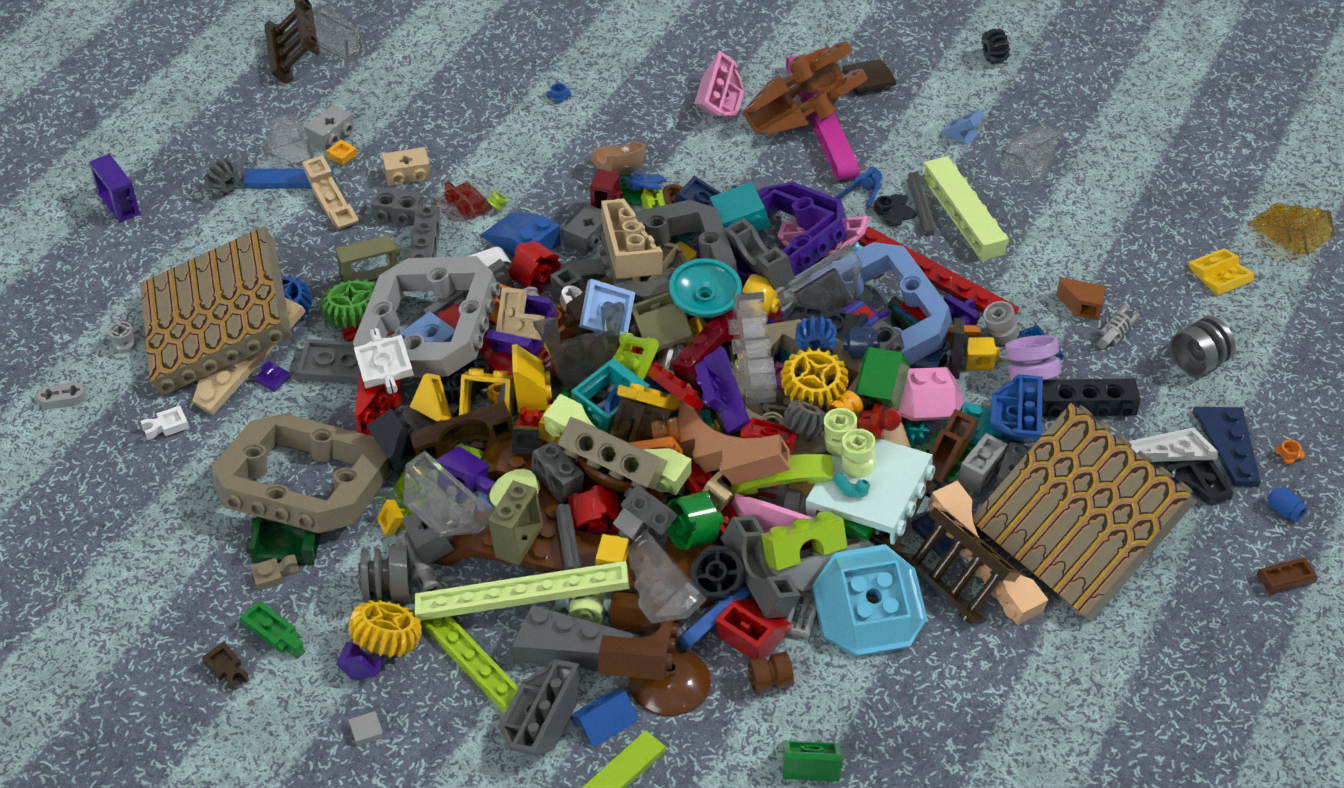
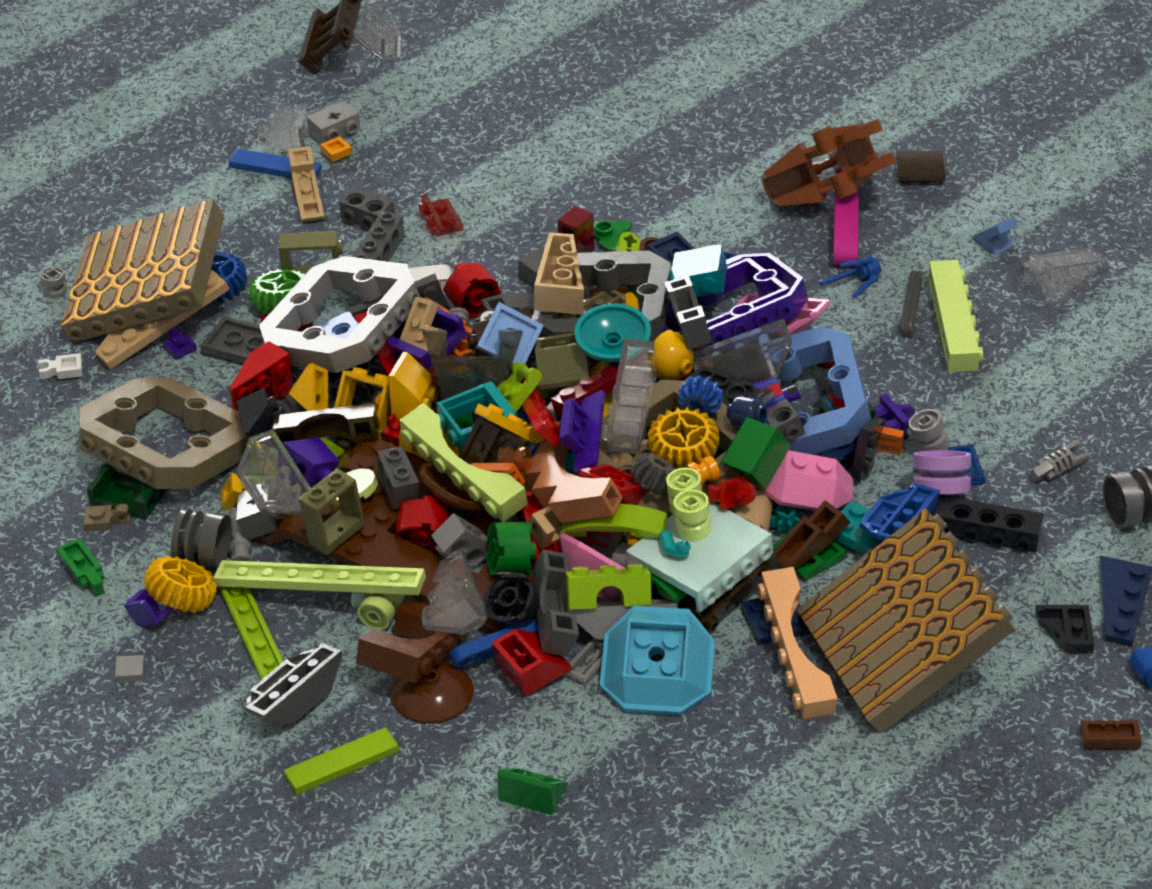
camera: 20 degrees right, 5 degrees down
(114, 188) = (101, 143): dark purple window -> none
(222, 176) = (208, 151): dark grey gear -> none
(223, 663) = (26, 586): dark brown plate -> none
(383, 361) = (274, 344): white plate -> none
(406, 166) = (393, 173): tan brick -> none
(497, 200) = (469, 221): lime bush -> none
(523, 228) = (486, 251): blue slope -> none
(524, 439) = (378, 440): black tile -> none
(558, 92) = (581, 127): blue plate -> none
(562, 637) = (333, 624): dark grey wedge -> none
(567, 537) = (384, 538): dark grey axle -> none
(578, 432) = (477, 486): dark tan brick -> none
(605, 716) = (354, 708): blue panel -> none
(612, 550) = (420, 557): yellow brick -> none
(620, 158) = (609, 203): medium nougat cylinder -> none
(641, 181) = (617, 227): blue plate -> none
(648, 509) = (465, 526): dark grey hinge -> none
(721, 88) = (752, 151): bright pink wedge -> none
(770, 672) = (527, 703): reddish brown wheel -> none
(894, 208) = (879, 303): black plate -> none
(940, 276) = (891, 375): red plate -> none
(981, 354) = (894, 459): yellow brick -> none
(982, 463) = (835, 558): light grey brick -> none
(982, 555) = (781, 639): dark brown fence -> none
(995, 46) = (1073, 157): black gear -> none
(1081, 297) = (1035, 427): dark orange slope -> none
(1176, 446) = (1055, 588): white wing -> none

